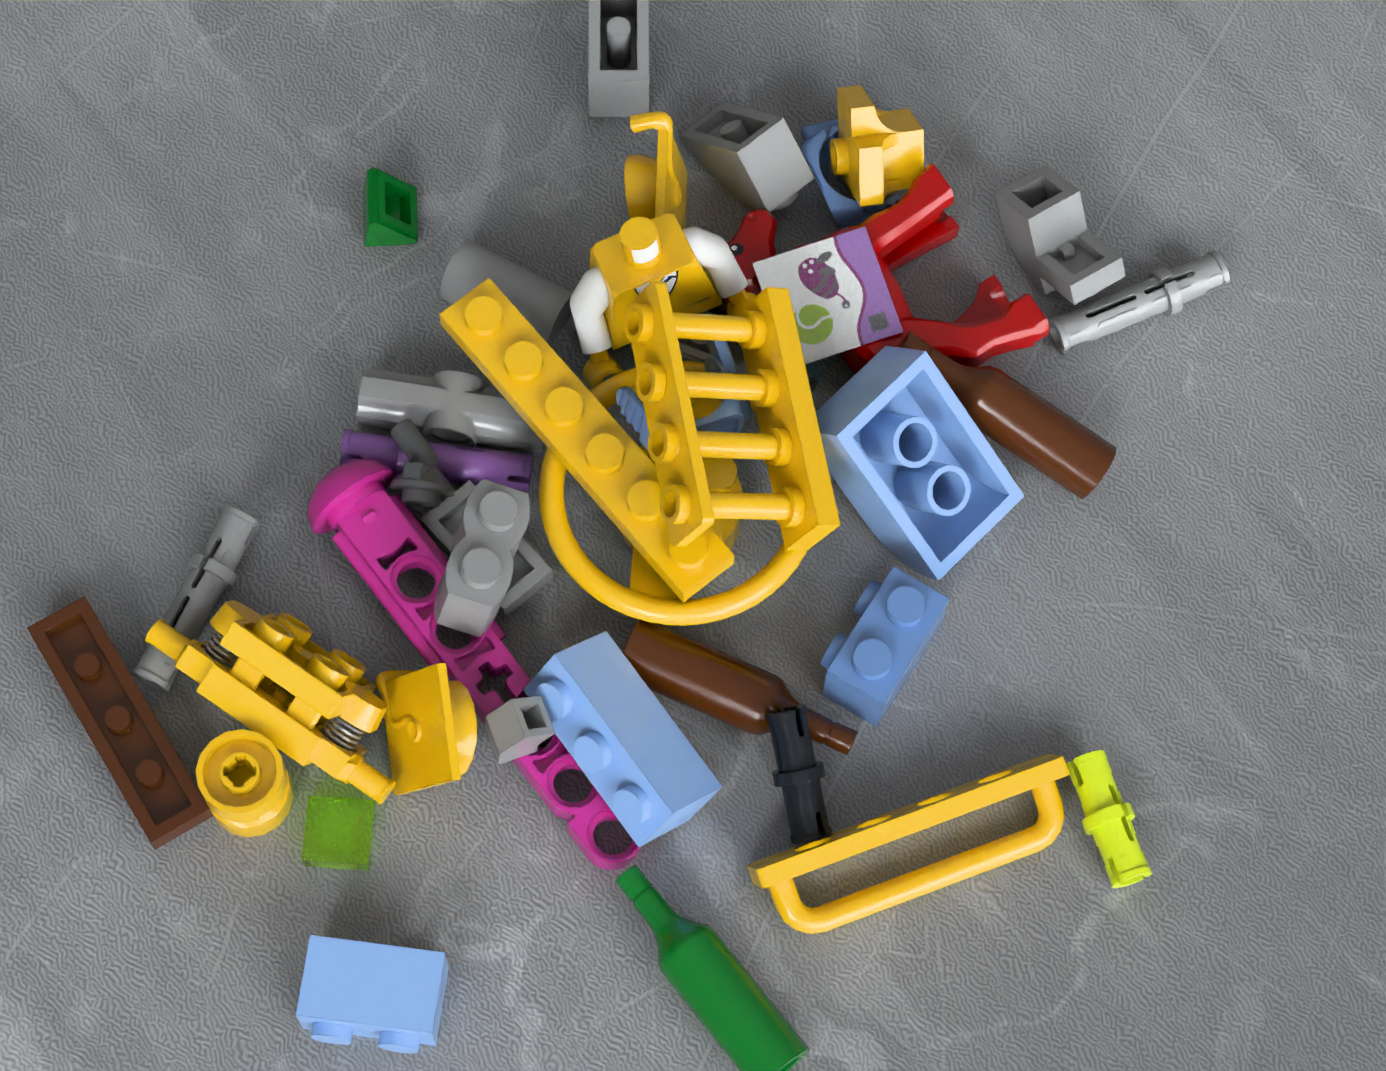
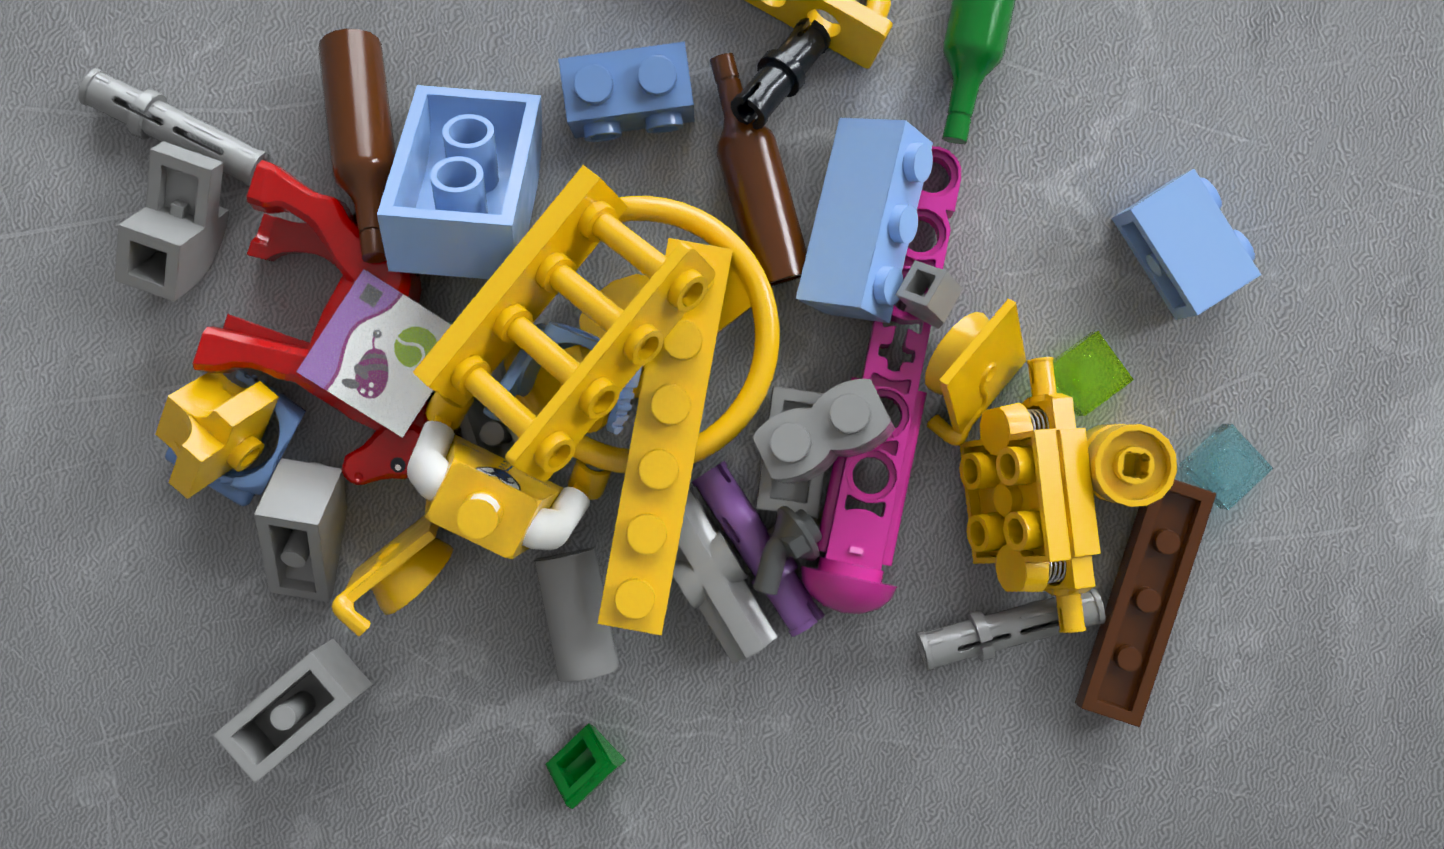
camera: 125 degrees left, 20 degrees up
(161, 882) = (1226, 465): none -> clear light blue plate

